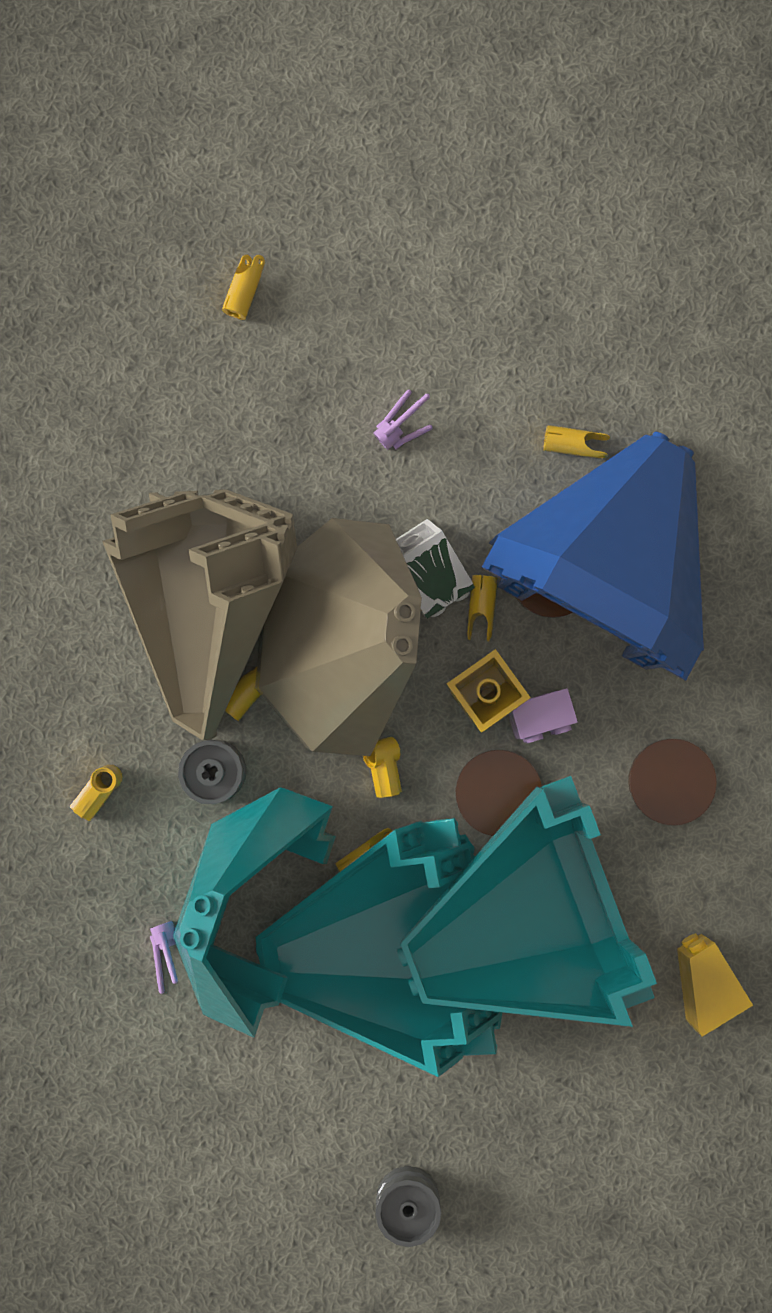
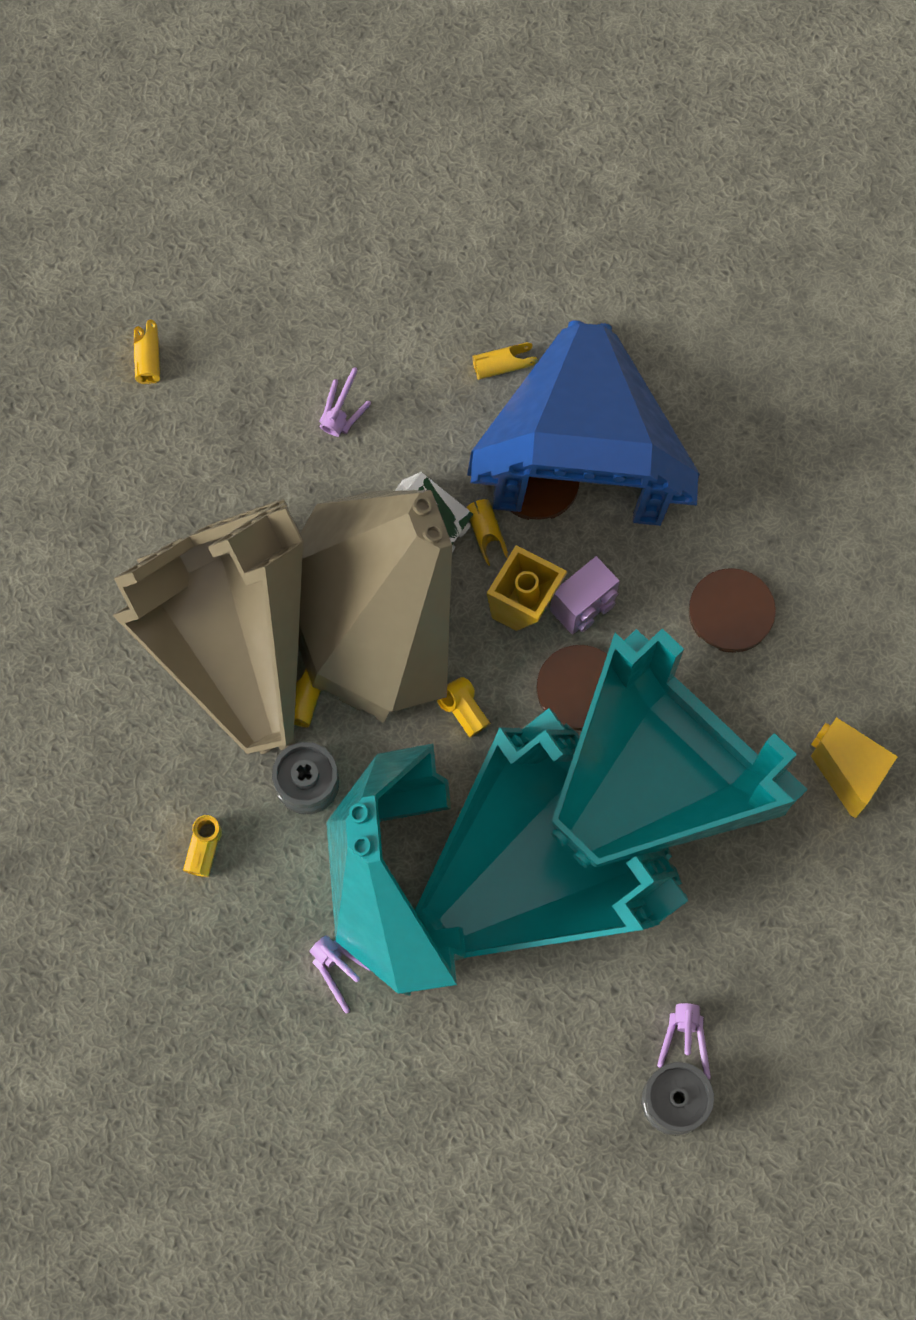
camera: 30 degrees left, 15 degrees down
(451, 1138) = (688, 1020): none -> lavender plant

